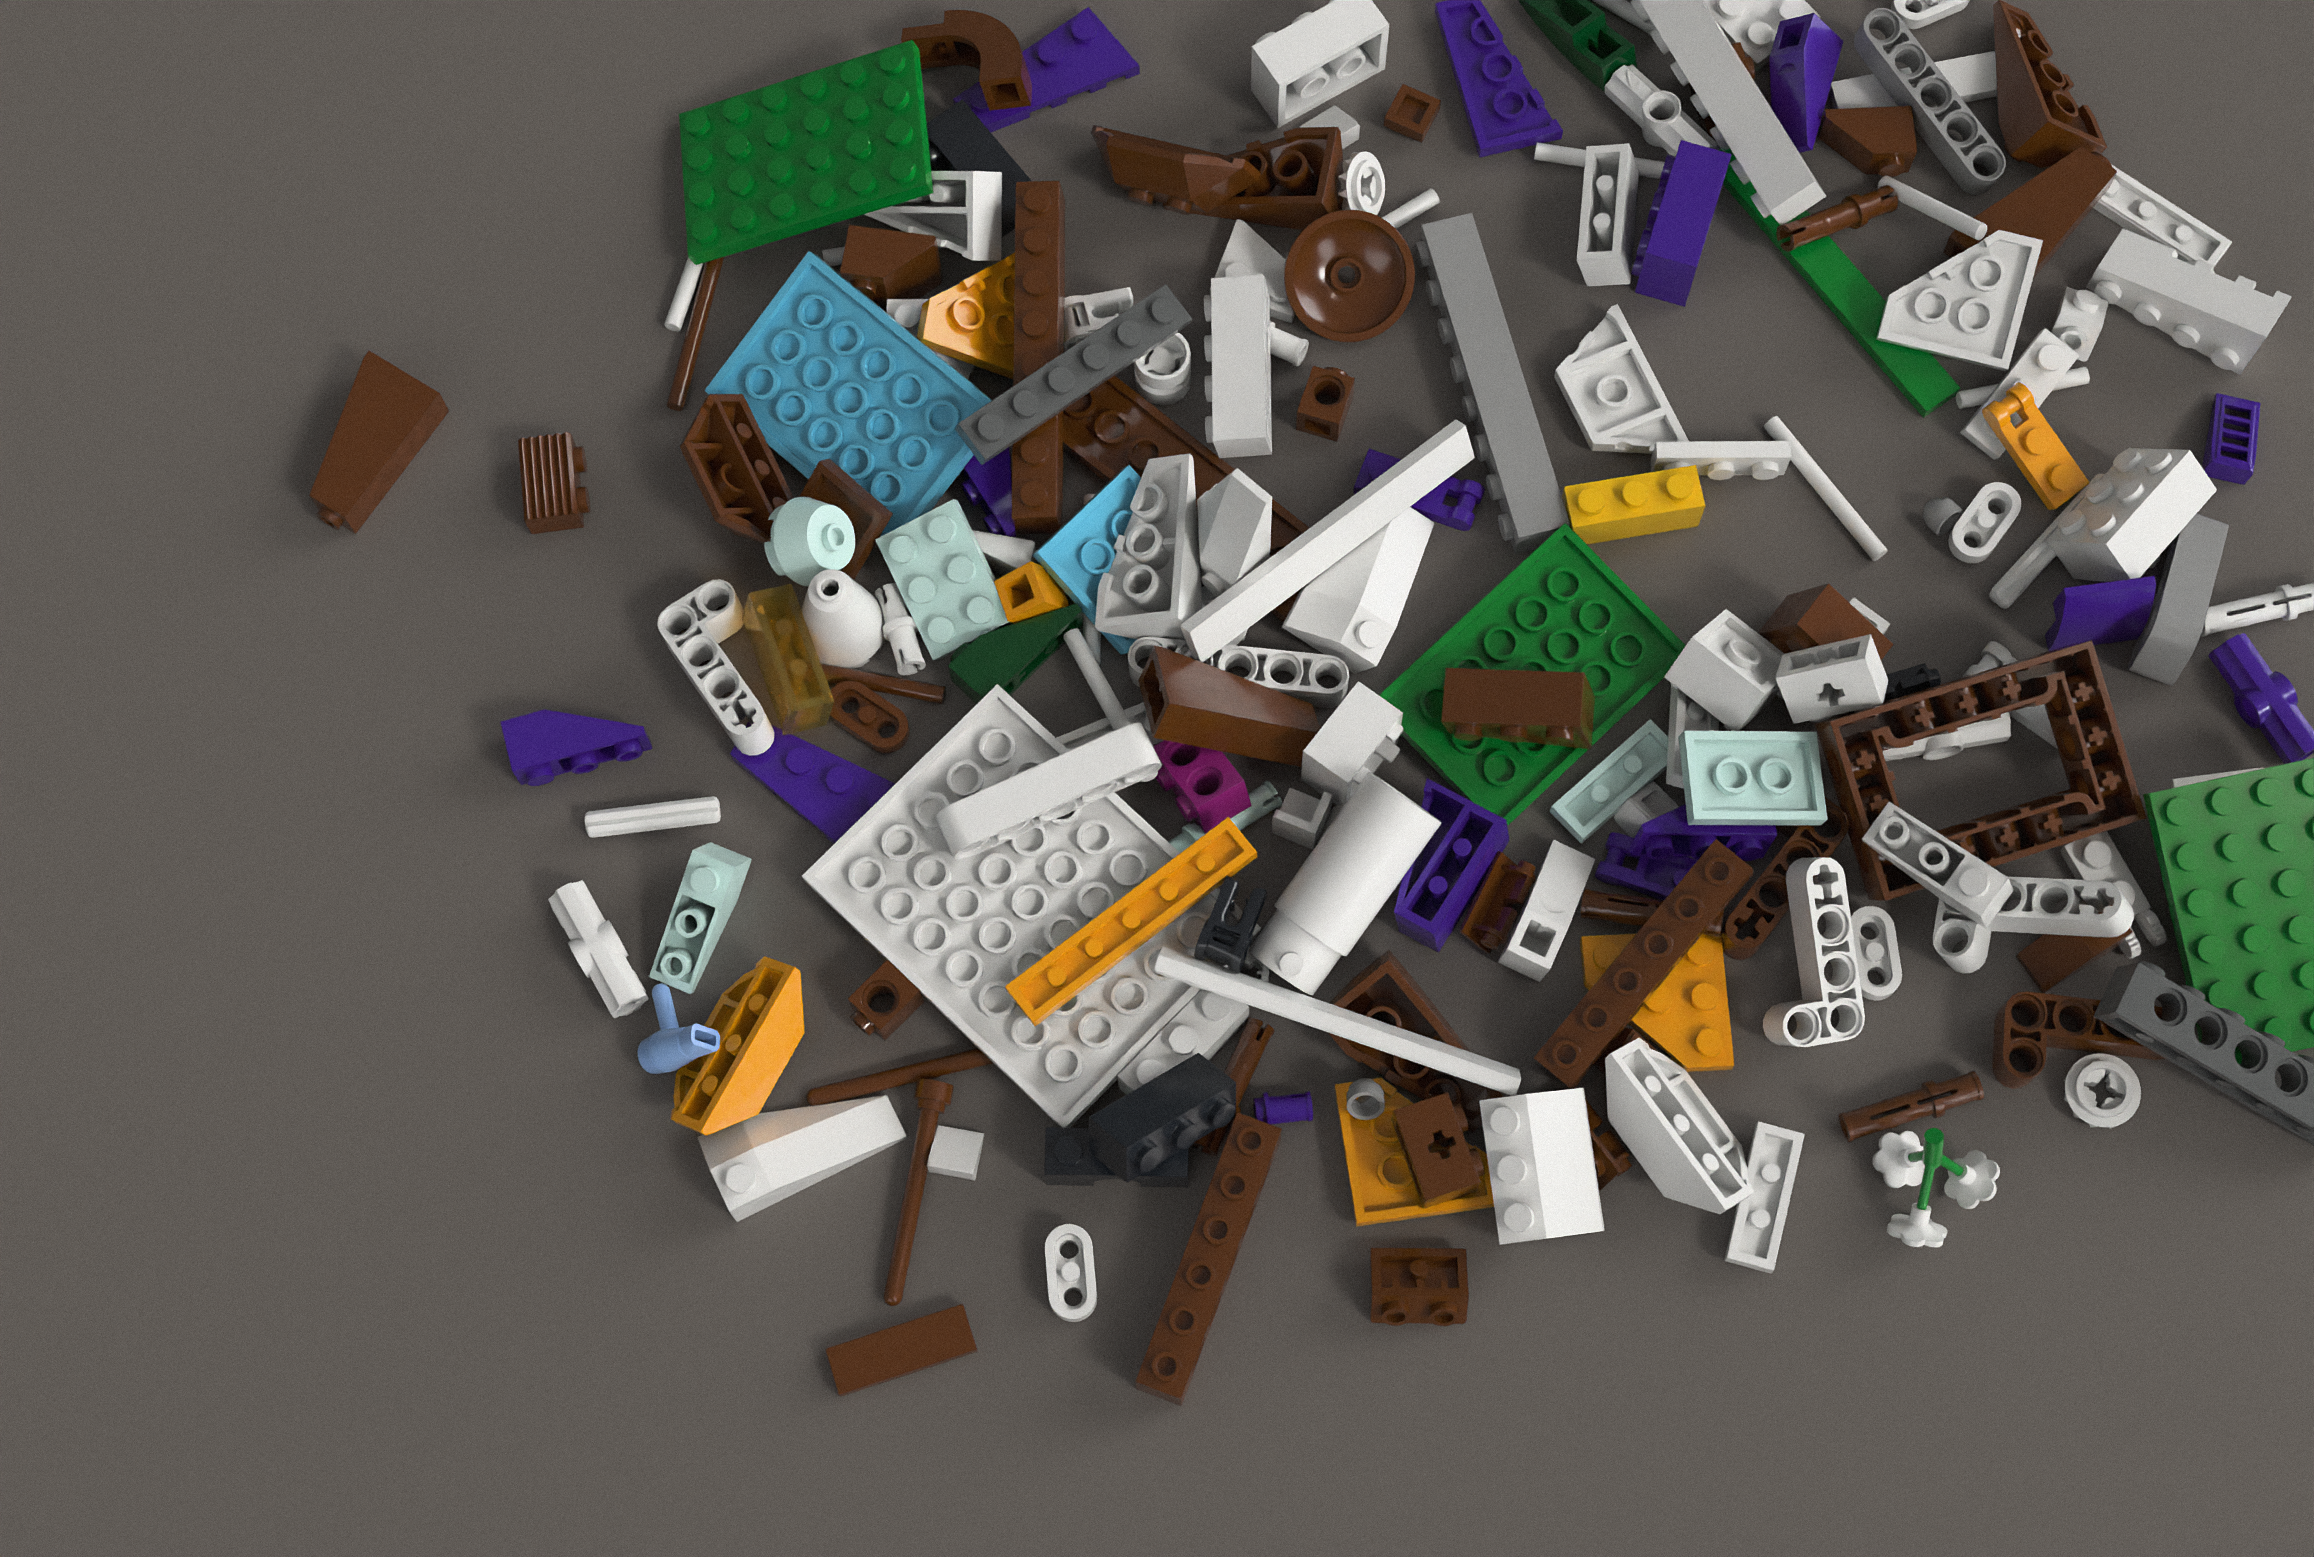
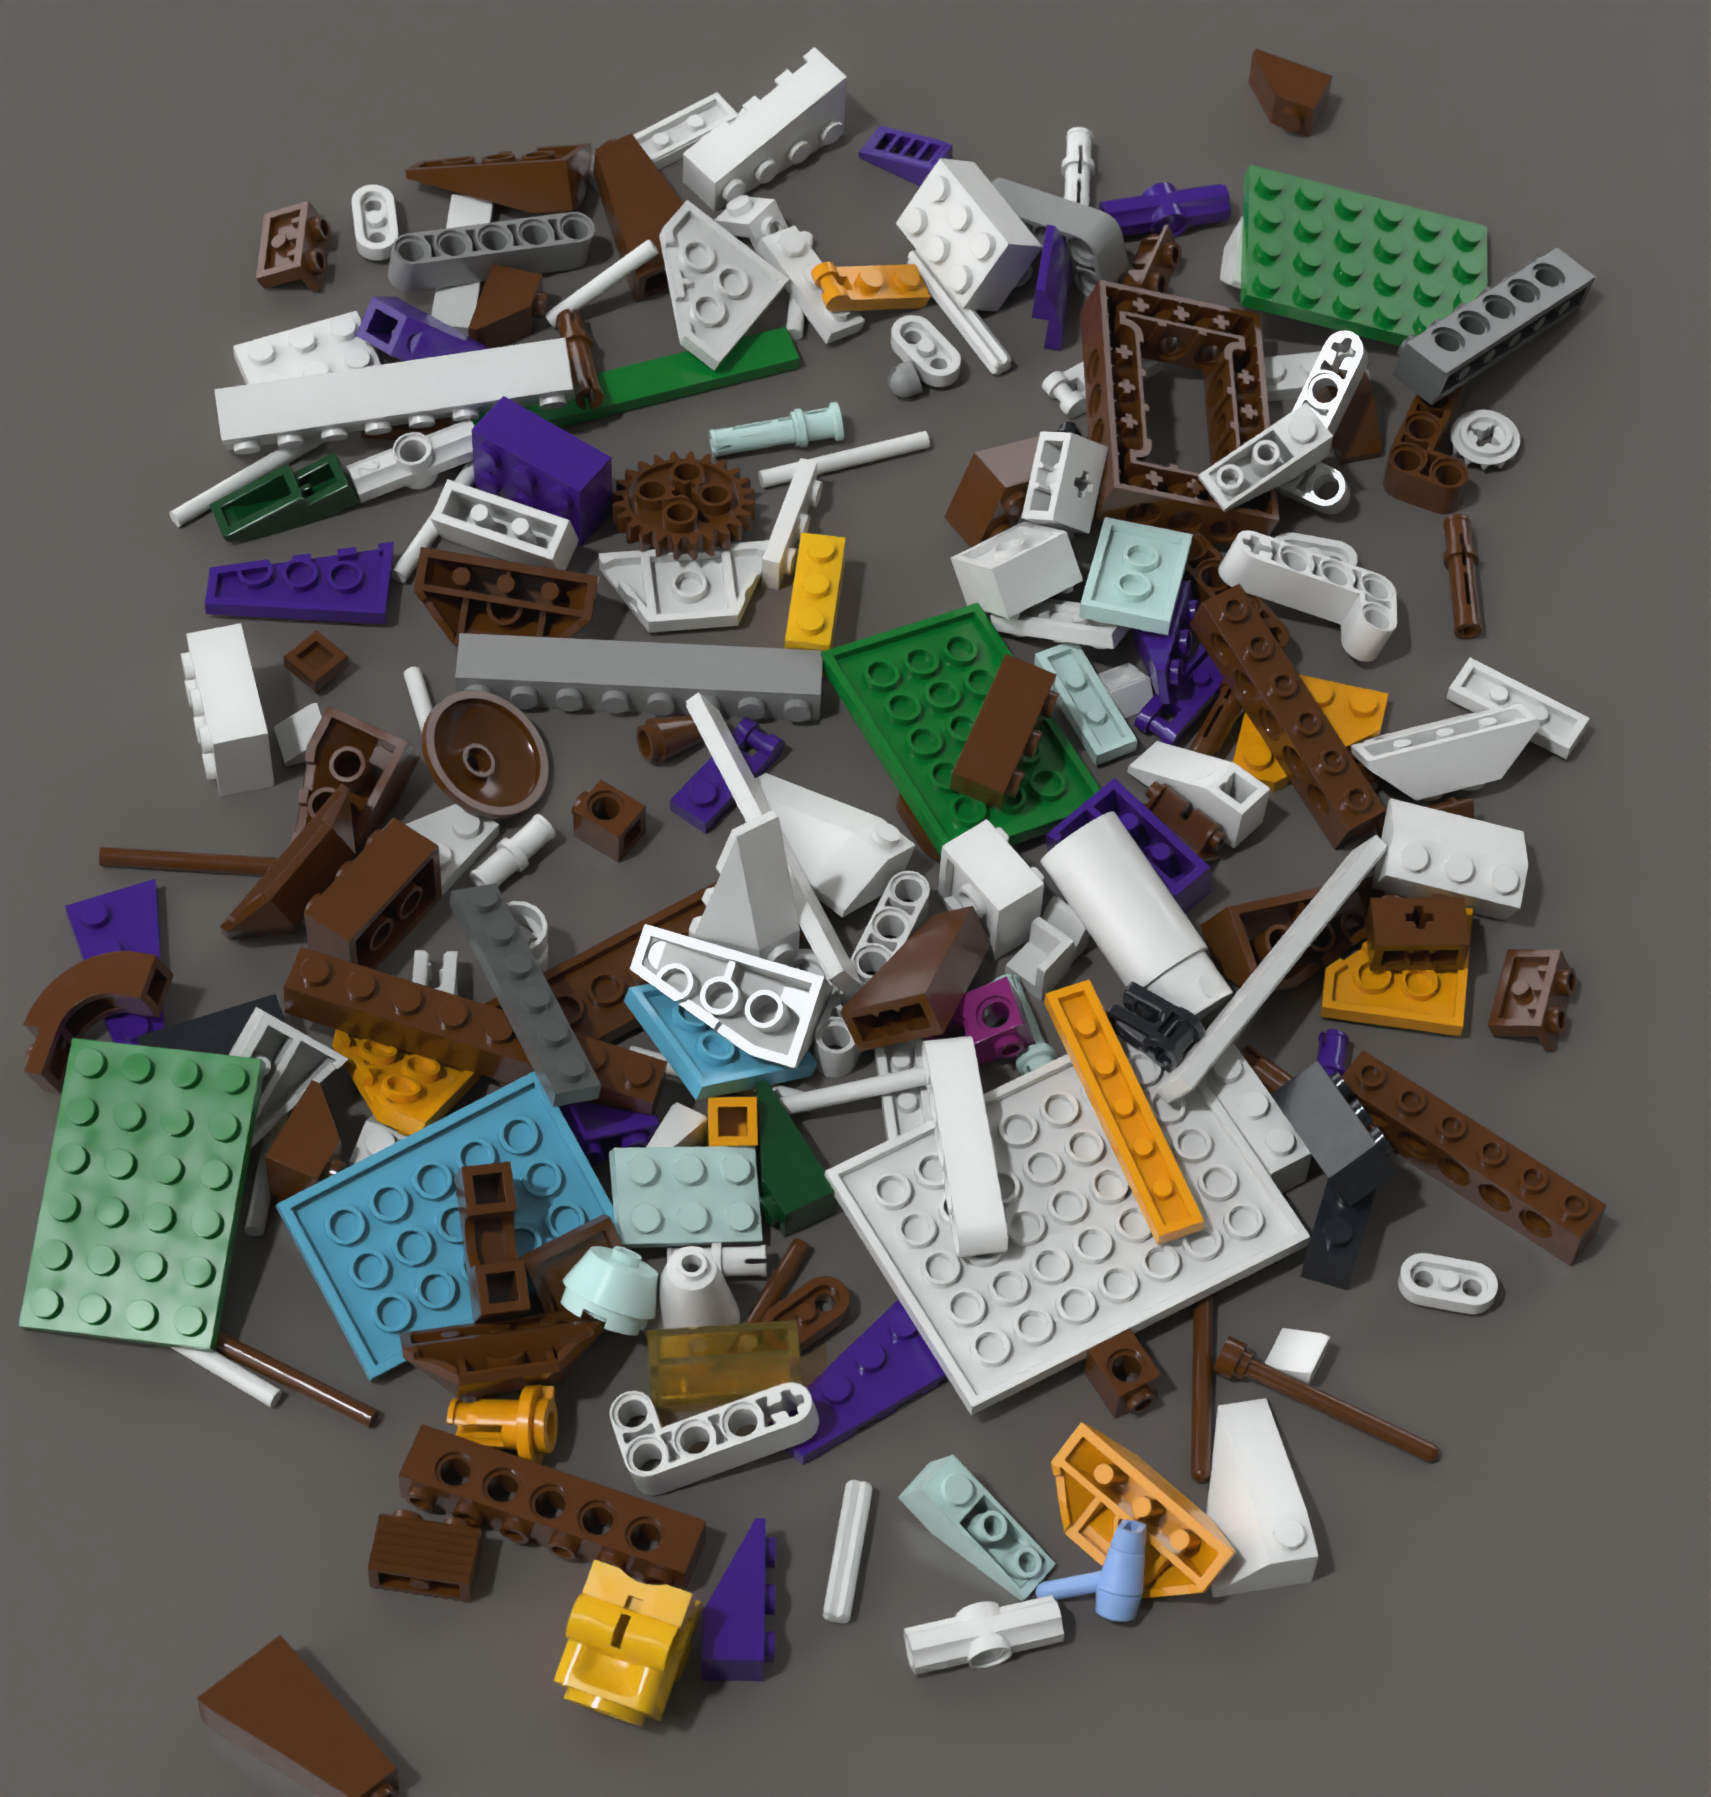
camera: 80 degrees left, 15 degrees down
(490, 654) = (626, 1645): none -> yellow piece
(619, 674) = (536, 1487): none -> reddish brown brick
(685, 518) = (502, 1424): none -> light orange piece
(854, 414) = (487, 1228): none -> reddish brown arch
(901, 1350) = (1486, 1457): reddish brown tile -> none
(1155, 235) = (376, 897): none -> reddish brown brick
(1169, 80) = (185, 861): none -> reddish brown bar
(1239, 366) = (553, 867): white brick -> none
(1362, 183) = (386, 718): white gear -> none
(1370, 1100) = (1349, 977): light grey hinge -> none
(1431, 418) = (666, 737): none -> reddish brown cone
(1530, 235) = (502, 596): none -> reddish brown wedge
(1736, 382) = (683, 505): none -> reddish brown gear
(1839, 433) = (796, 428): none -> light aqua pin
(1908, 1163) = (1540, 554): white plant -> none
(2197, 711) = (1155, 262): none -> reddish brown hinge

